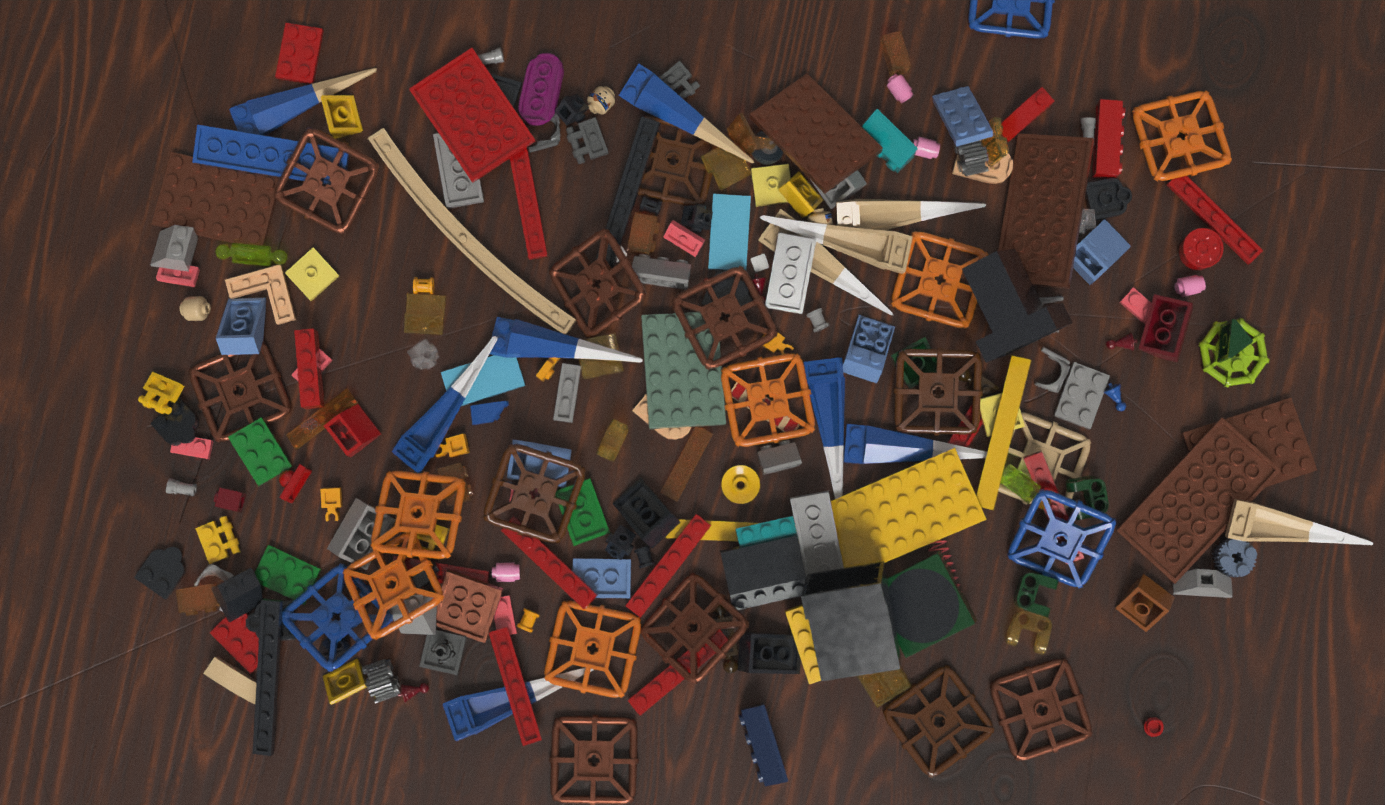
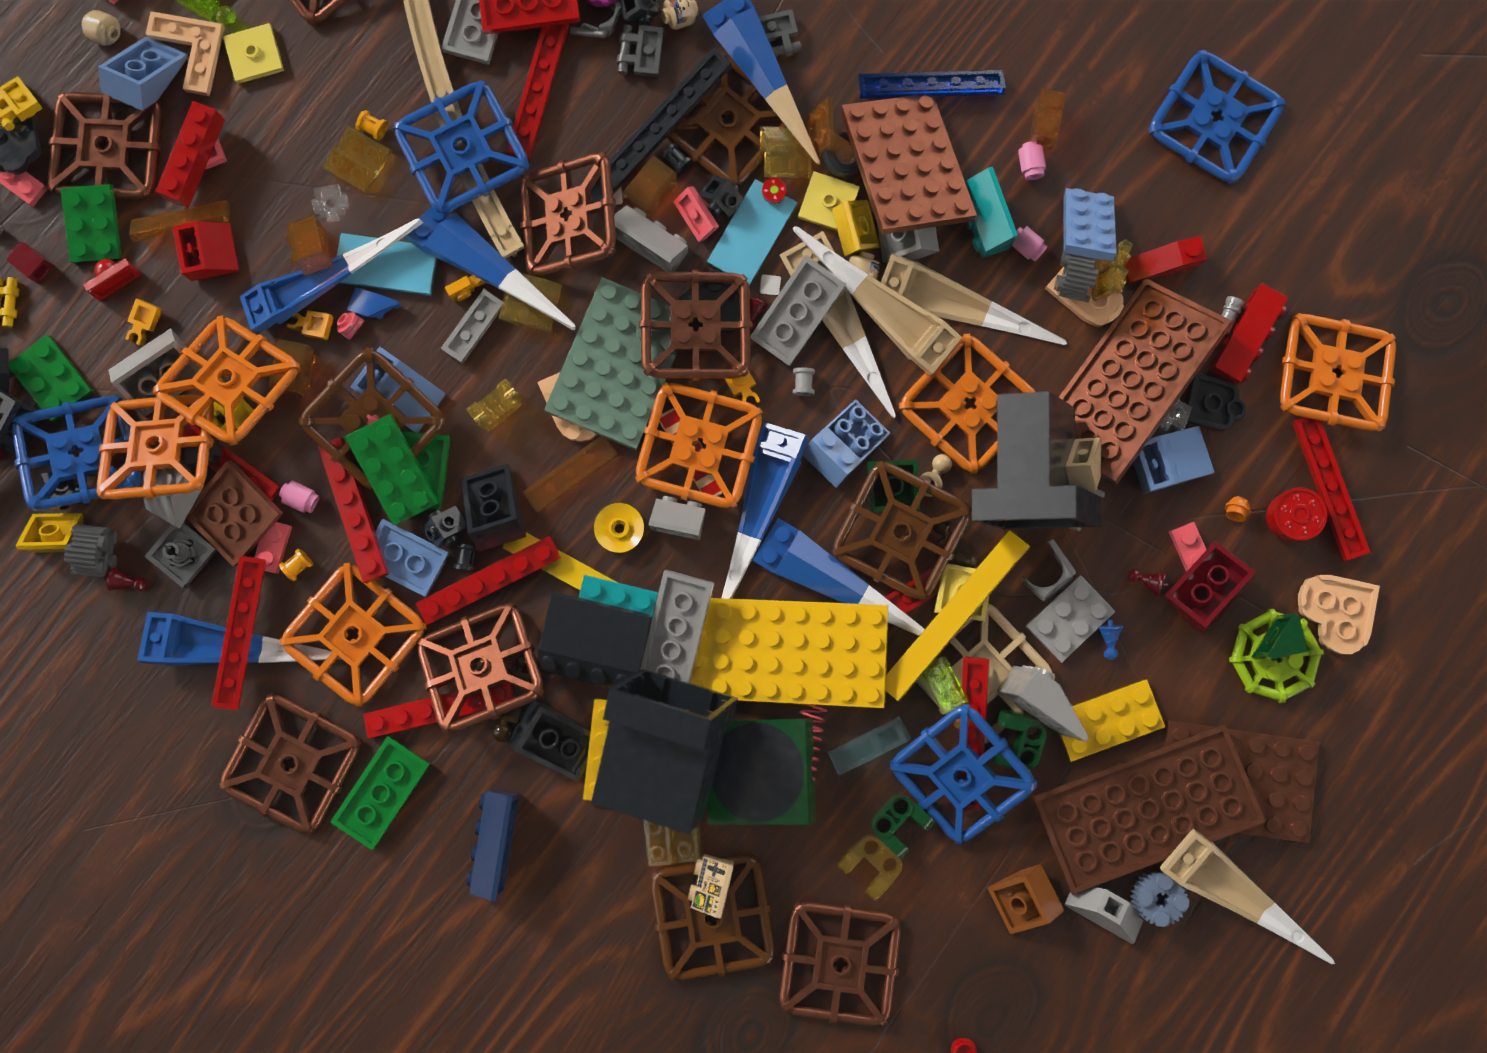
camera: 25 degrees right, 0 degrees up
(424, 391) = (308, 245): none -> clear orange brick
(478, 434) = (349, 324): none -> coral plate
(497, 283) = (475, 153): none -> blue plate
(565, 520) = (392, 469): none -> green plate
(667, 749) = (380, 793): none -> green plate
(731, 196) = (774, 190): none -> red tile
(803, 67) = (931, 84): none -> clear blue plate
(928, 698) = (712, 885): none -> slope
(941, 332) = (941, 465): none -> tan plate
(987, 550) = (869, 745): none -> clear light blue slope
(1041, 286) = (1084, 463): none -> tan slope
(1092, 460) = (1042, 698): none -> light grey slope
(1141, 453) = (1114, 719): none -> yellow plate
(1159, 264) = (1237, 509): none -> orange plate
(1190, 285) = (1262, 551): bright pink brick -> none
(1262, 299) = (1341, 610): none -> light nougat plate

